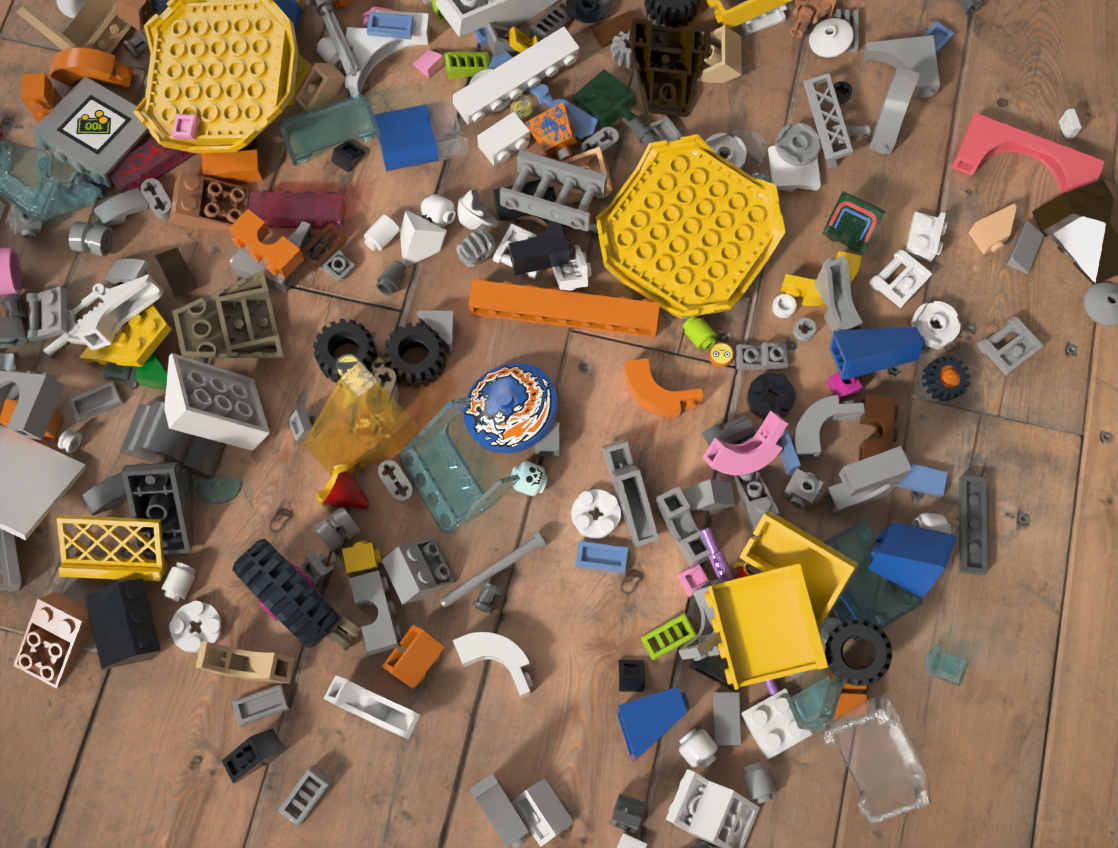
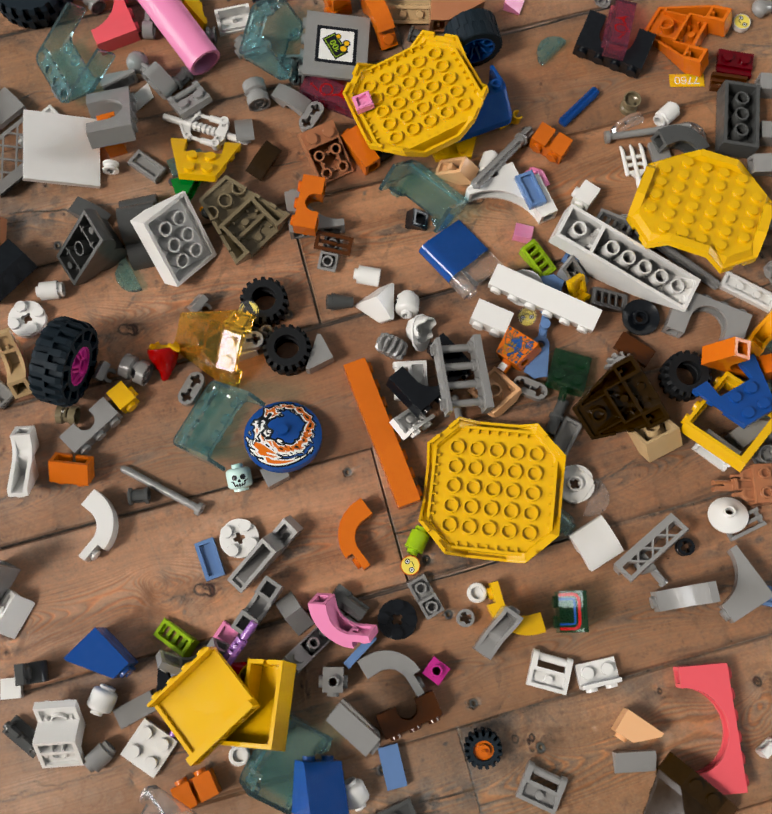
camera: 60 degrees right, 5 degrees up
(114, 567) = (38, 238): yellow fence -> none
(121, 305) = (215, 141): white arch -> none
(290, 208) = (353, 210): clear pink brick -> none
(417, 570) = (135, 439): light grey slope -> none
(631, 675) = (135, 624): black slope -> none
(798, 144) = (615, 535): light grey tile -> none
(816, 704) = (170, 770): clear light blue slope -> none
(842, 669) = (203, 778): black tyre -> none
(874, 349) = (473, 680): blue slope -> none
(948, 321) = (535, 711): white plate -> none

